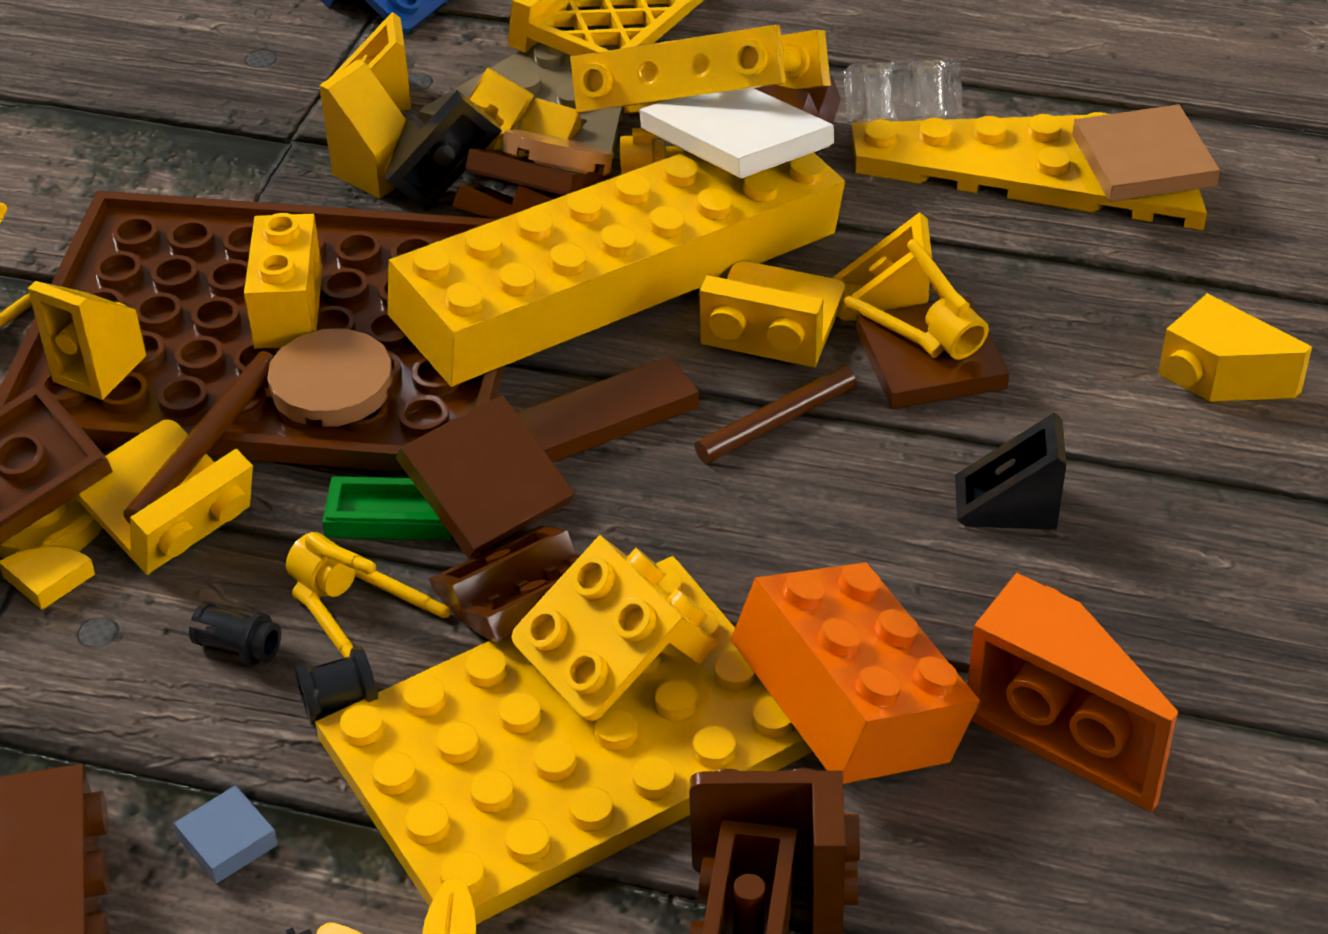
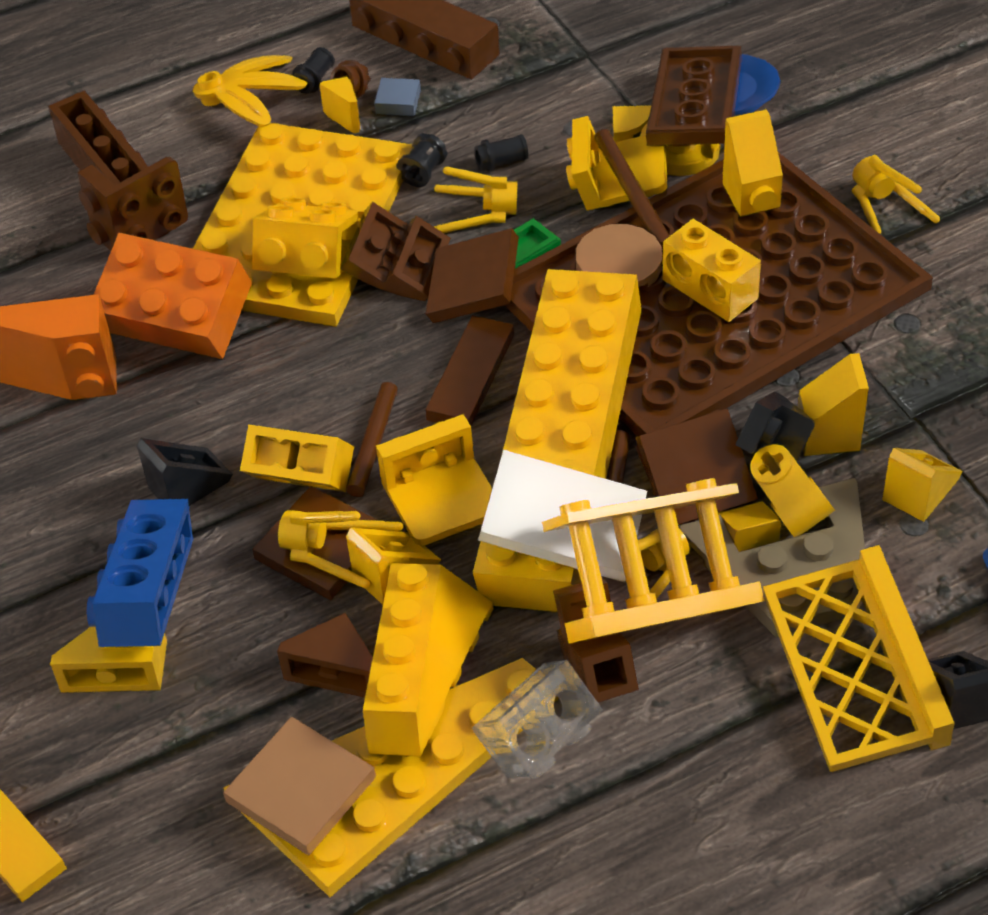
camera: 140 degrees right, 5 degrees up
(254, 892) = (356, 73): none -> reddish brown plate
(313, 851) = (340, 103): none -> yellow slope
(558, 152) = (687, 456): medium nougat tile -> none
(890, 396) = (297, 458): none -> yellow brick
(966, 170) = (420, 645): none -> yellow wedge
(1027, 239) = (328, 657): none -> reddish brown slope
(1194, 280) = (141, 574): none -> blue brick

